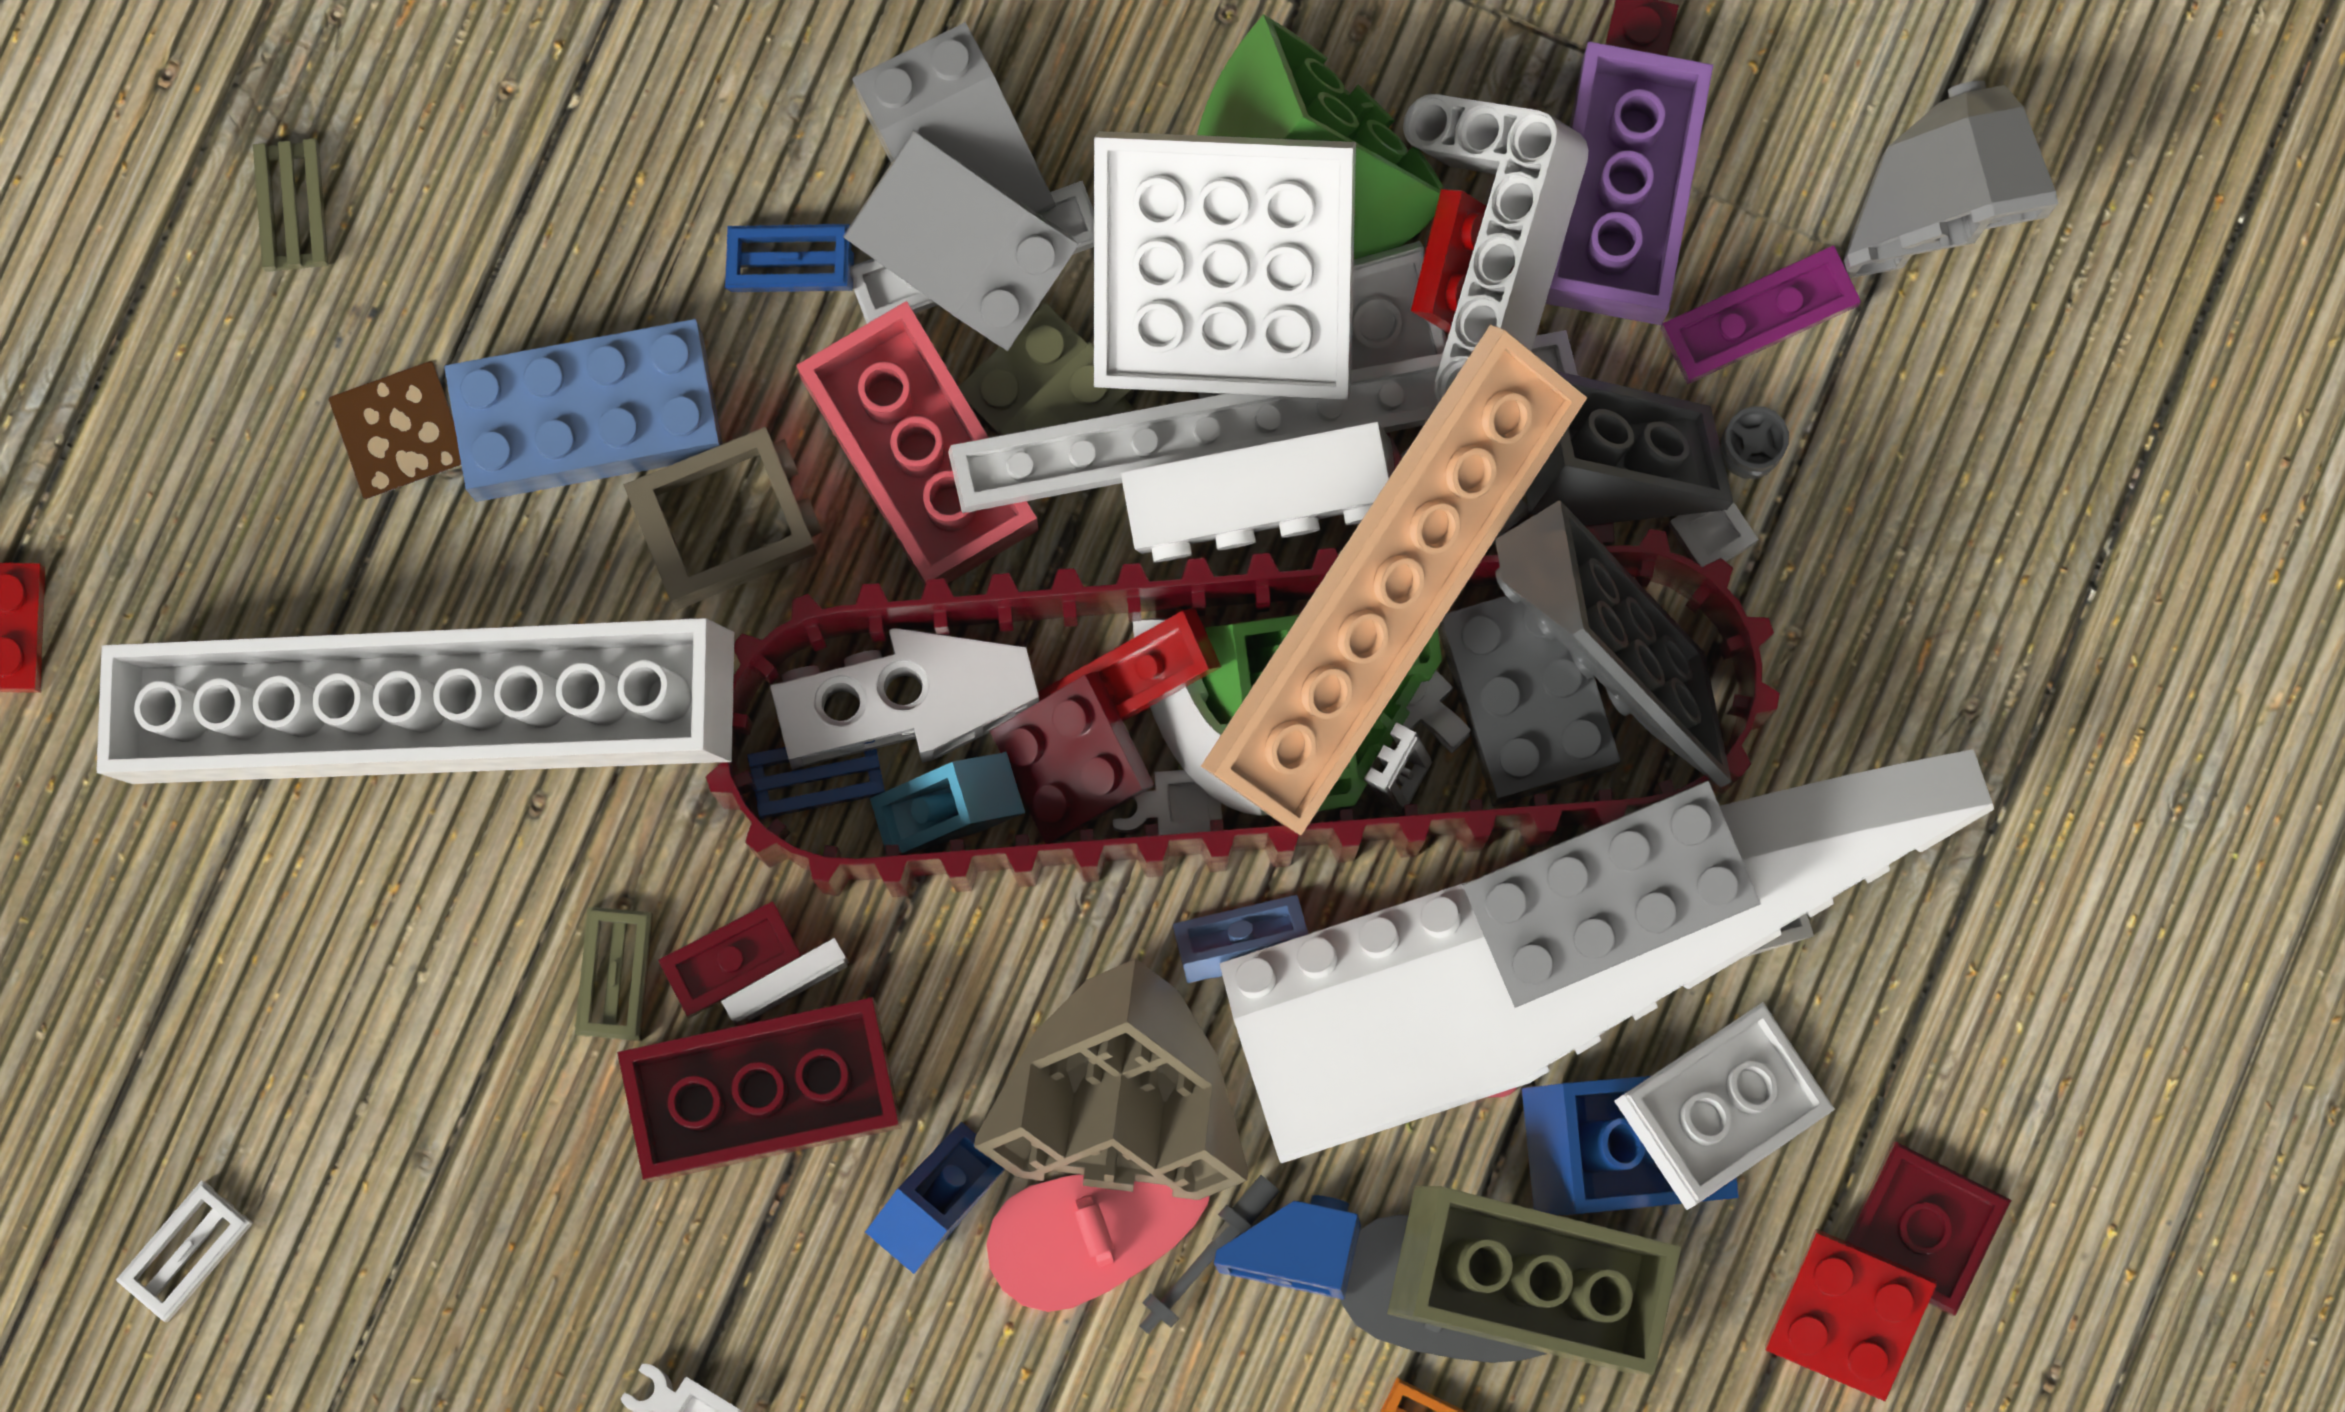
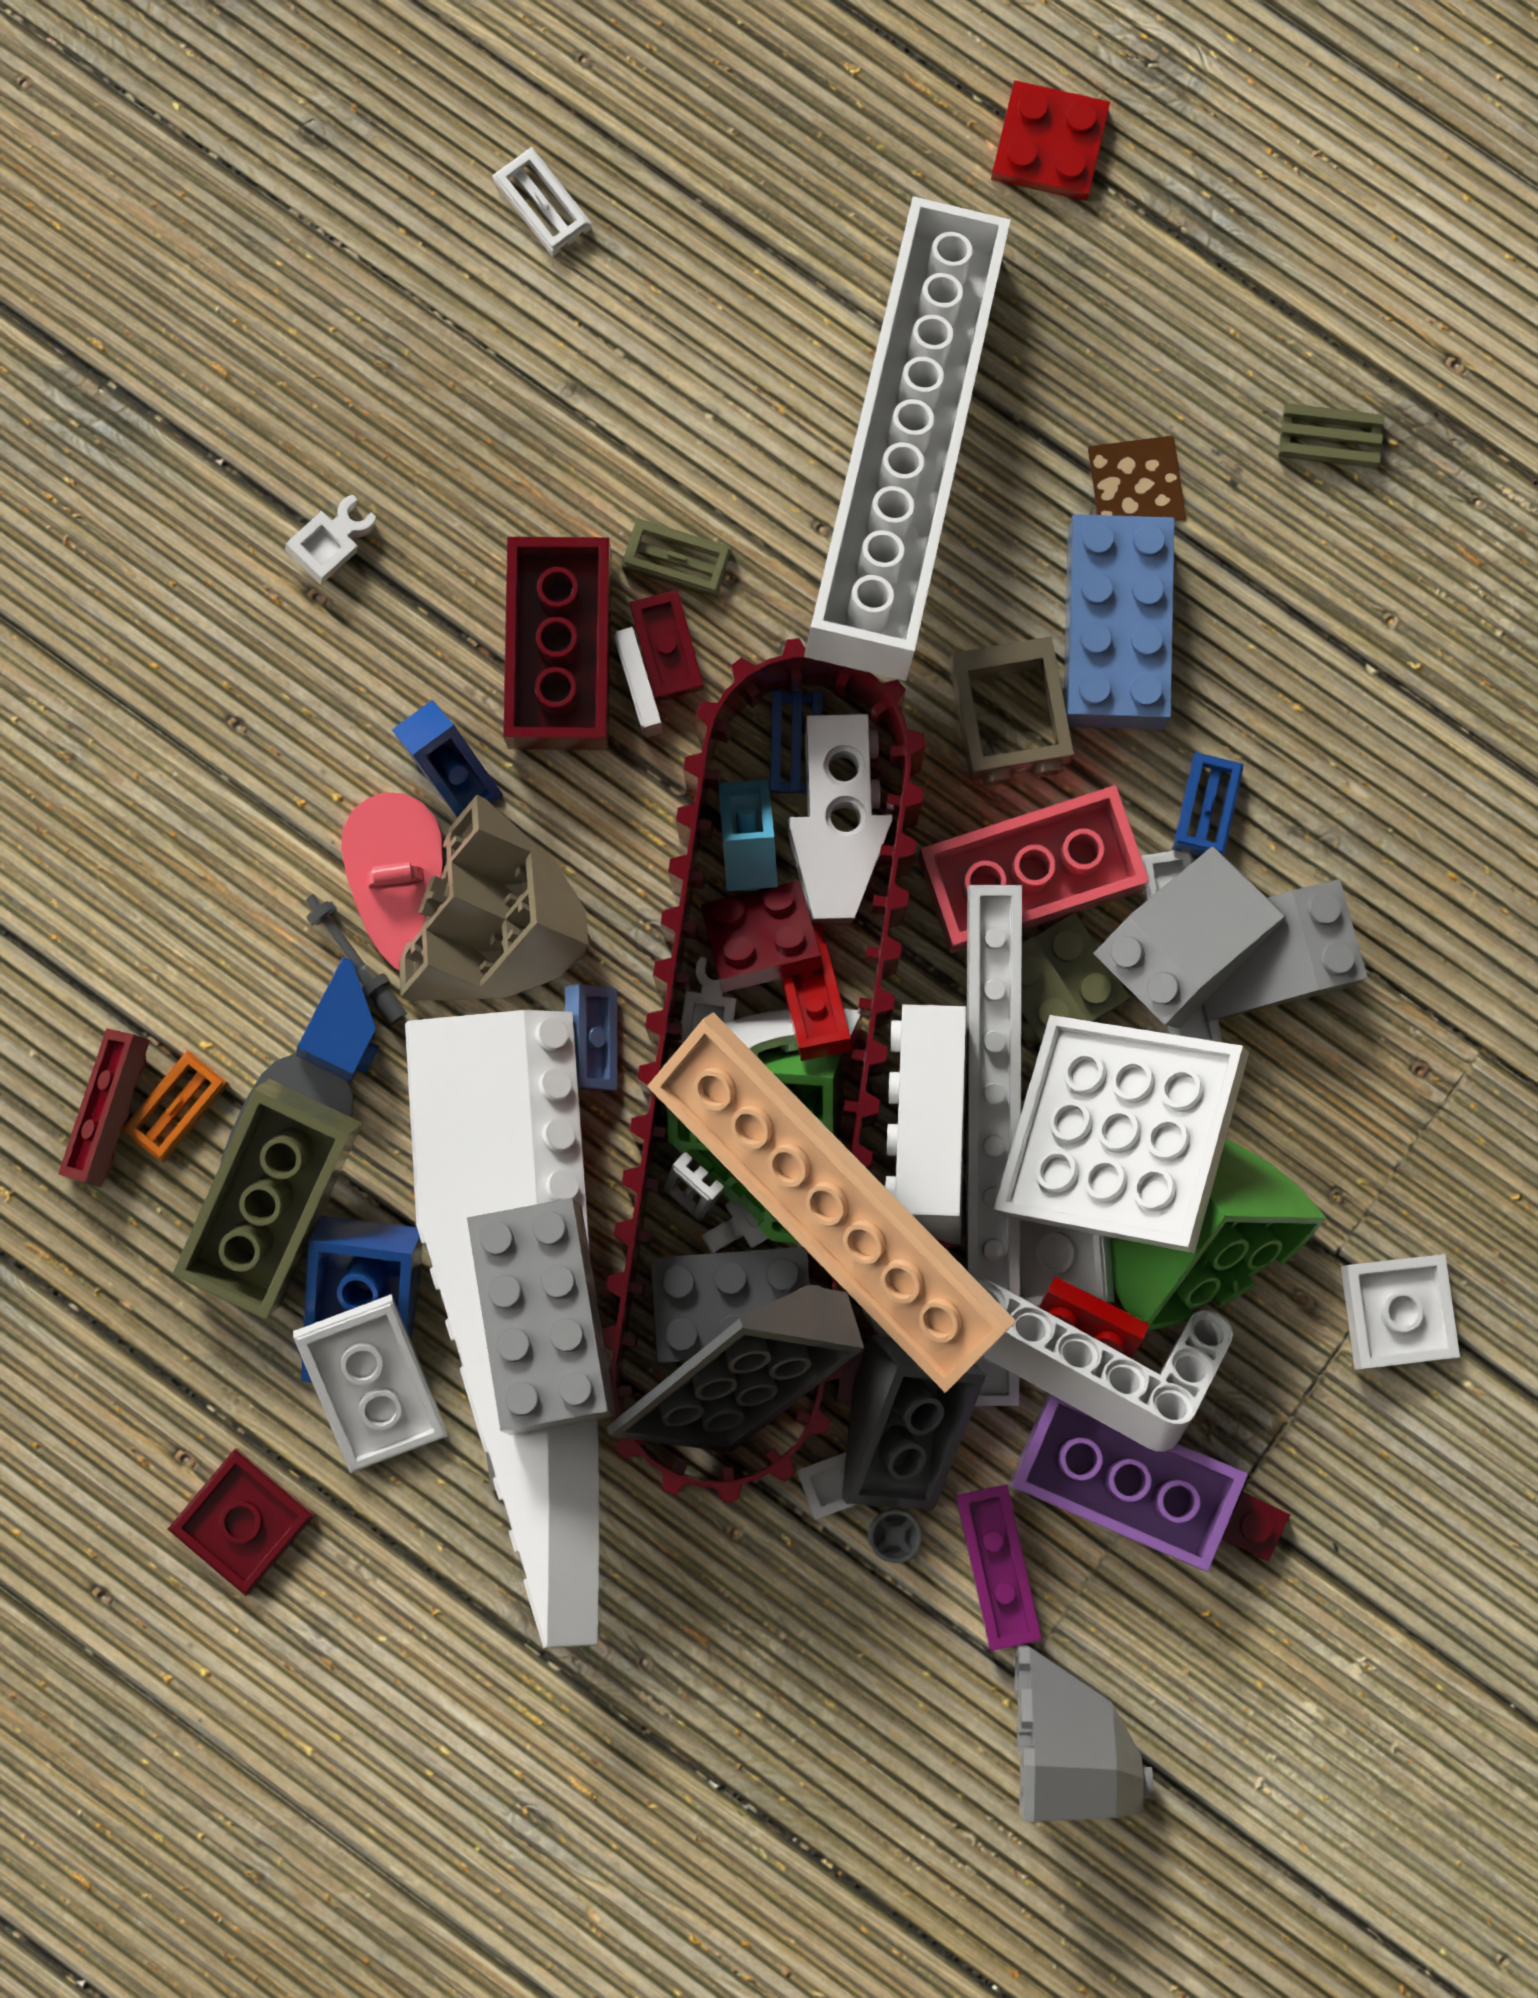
camera: 105 degrees right, 0 degrees up
(1850, 1315) = (187, 1445): red plate -> none

